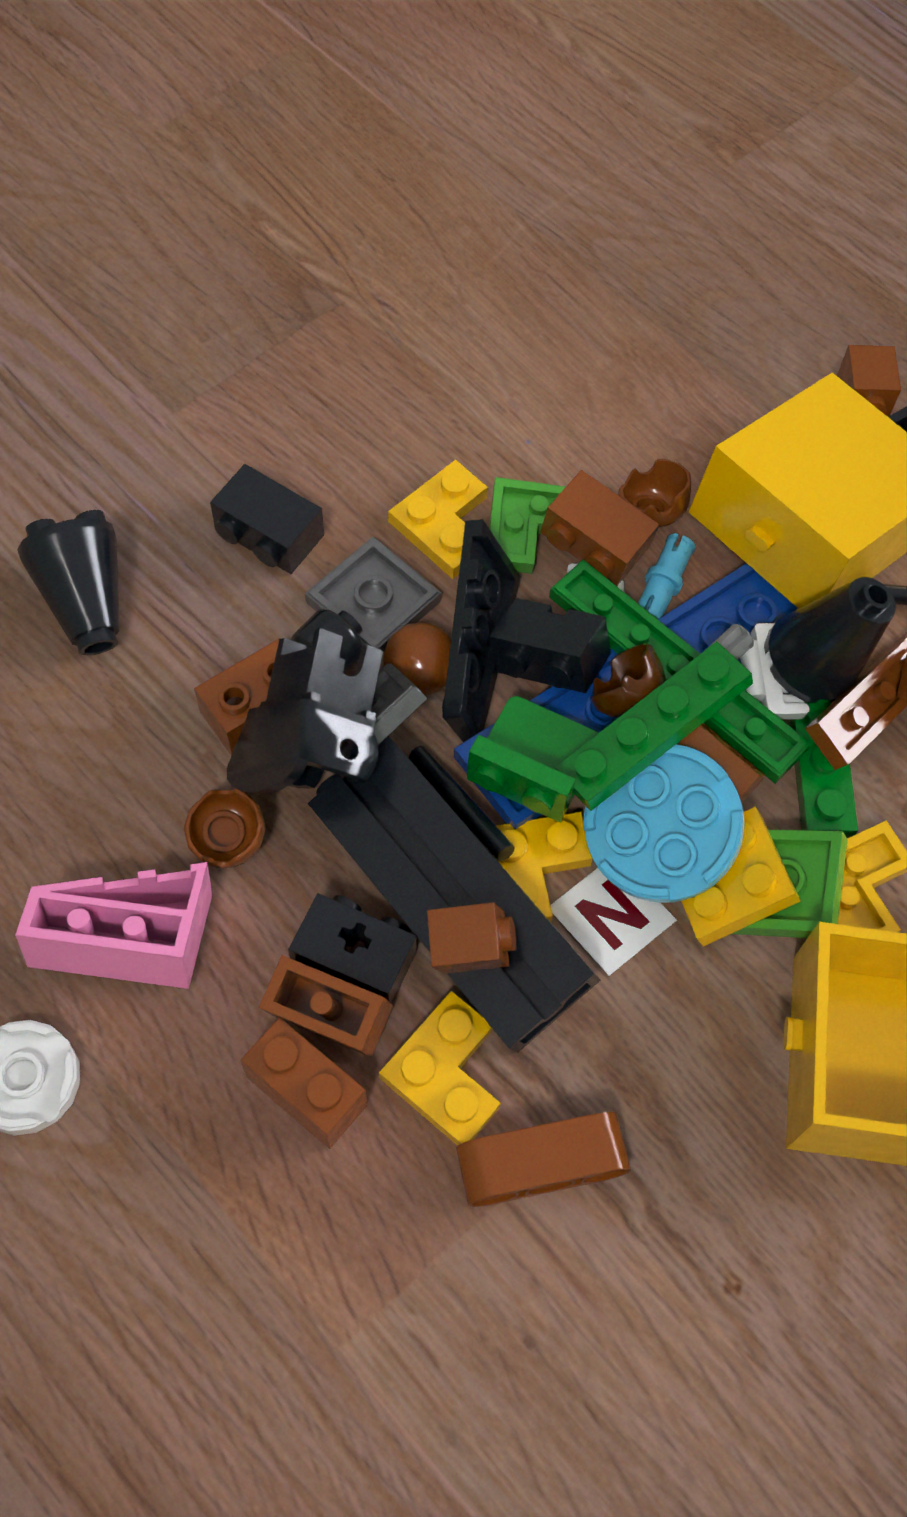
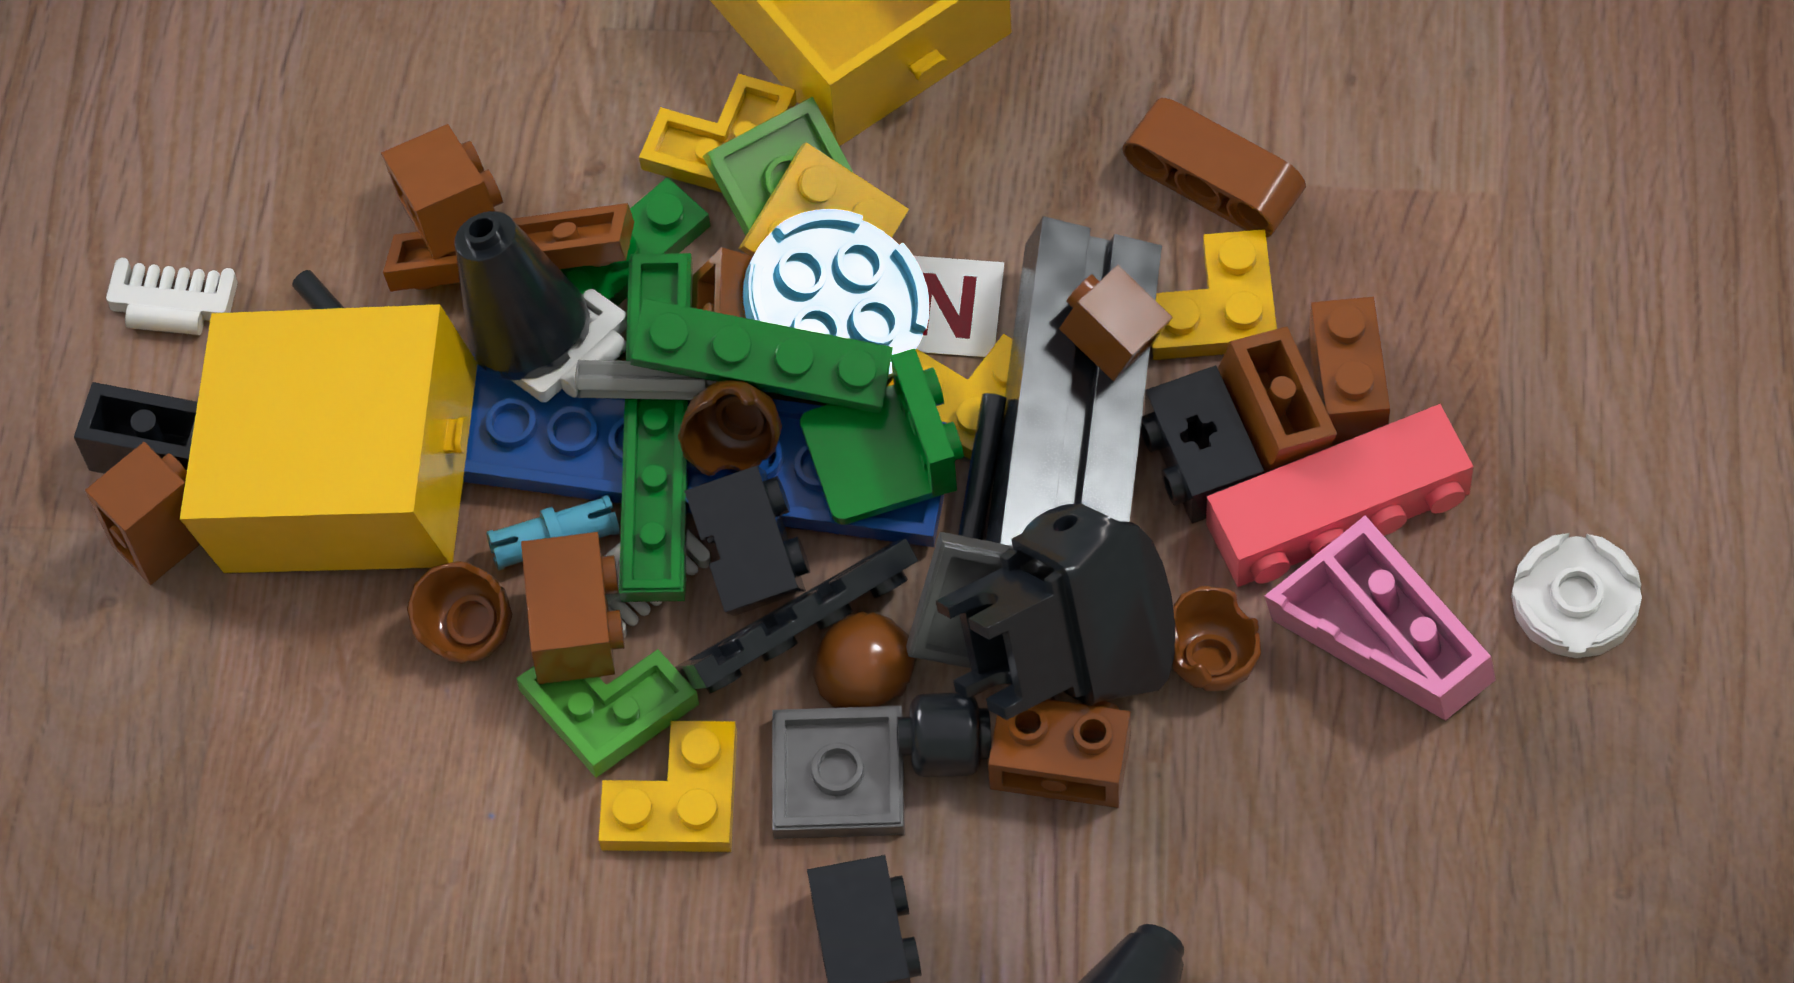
camera: 125 degrees left, 0 degrees up
(222, 1011) = (1312, 501): none -> coral brick

